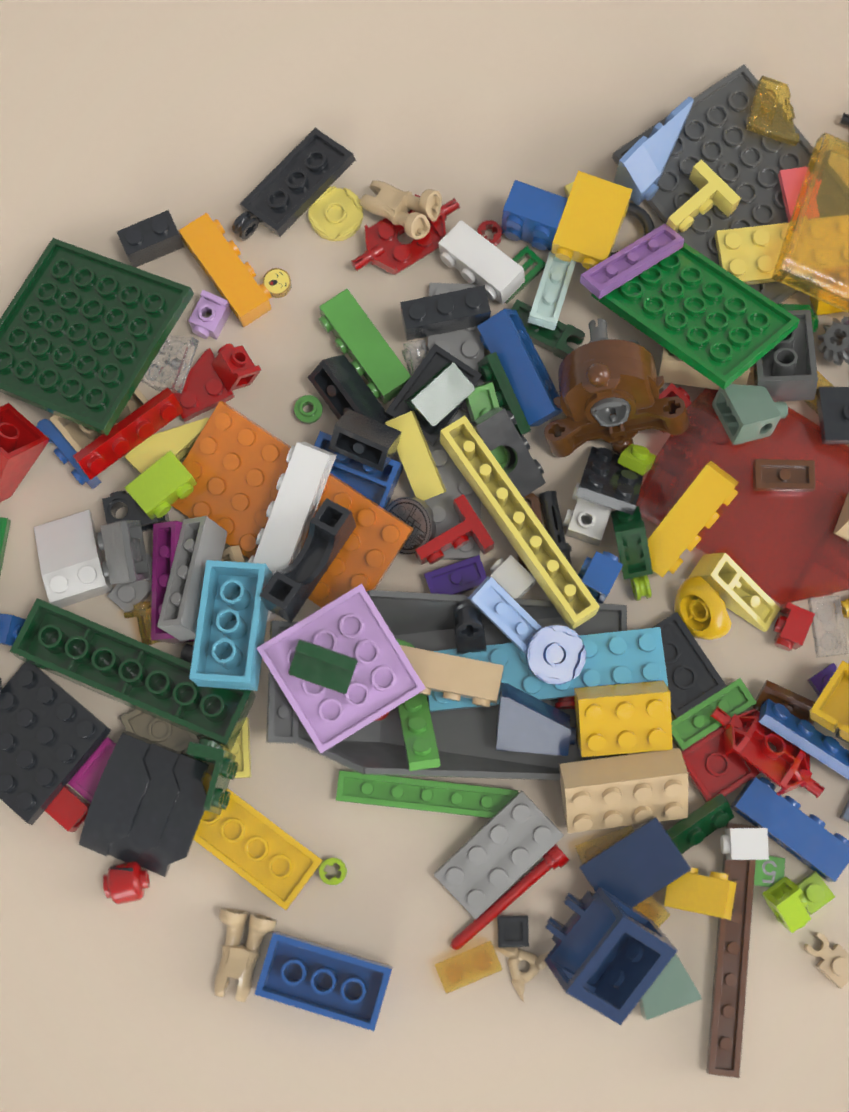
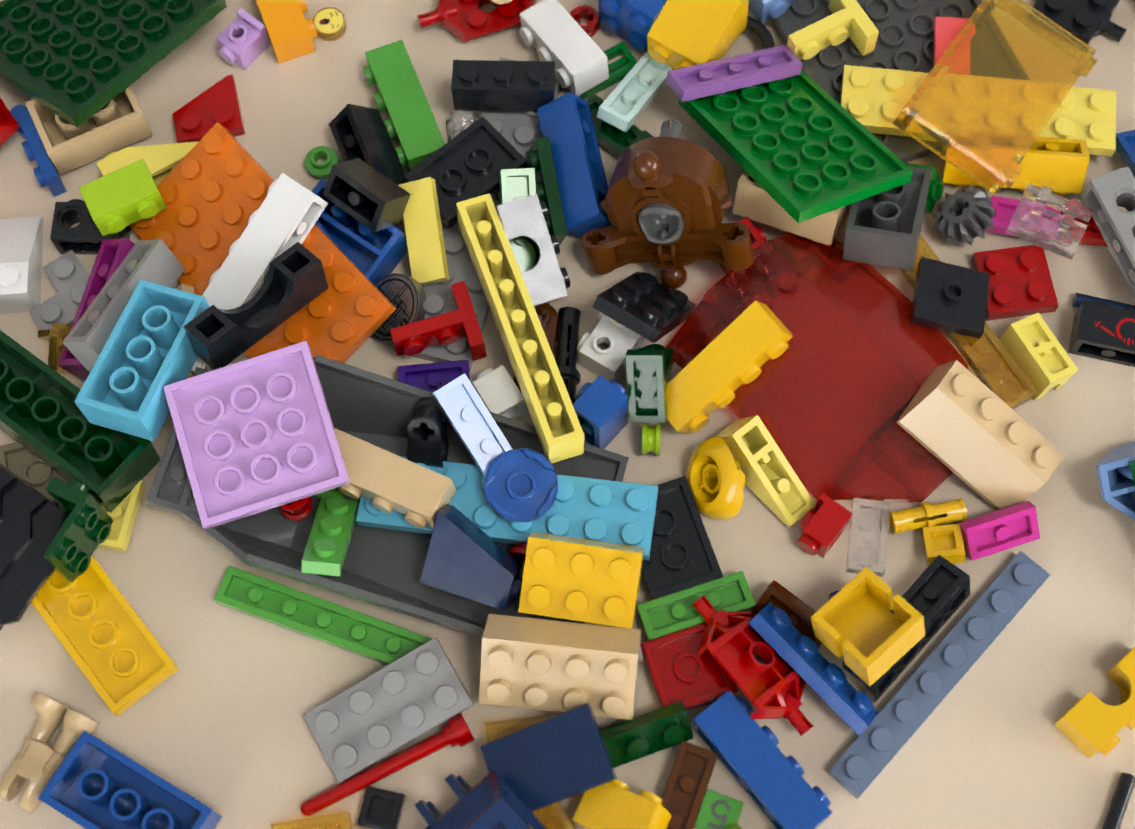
camera: 15 degrees right, 10 degrees down
(123, 552) = (59, 257): dark grey slope -> none
(128, 433) = (106, 136): red plate -> none
(172, 364) = (179, 78): clear bracket -> none
(235, 367) = (251, 92): red brick -> none
(322, 666) = (233, 422): dark green panel -> none
(331, 861) = (183, 695): lime bush -> none
(441, 394) = (469, 165): panel -> none
(637, 459) = (682, 290): lime plate -> none
(745, 844) = (693, 767): white brick -> none
(748, 412) = (826, 261): sand green torso -> none
(784, 475) = (848, 338): reddish brown plate -> none

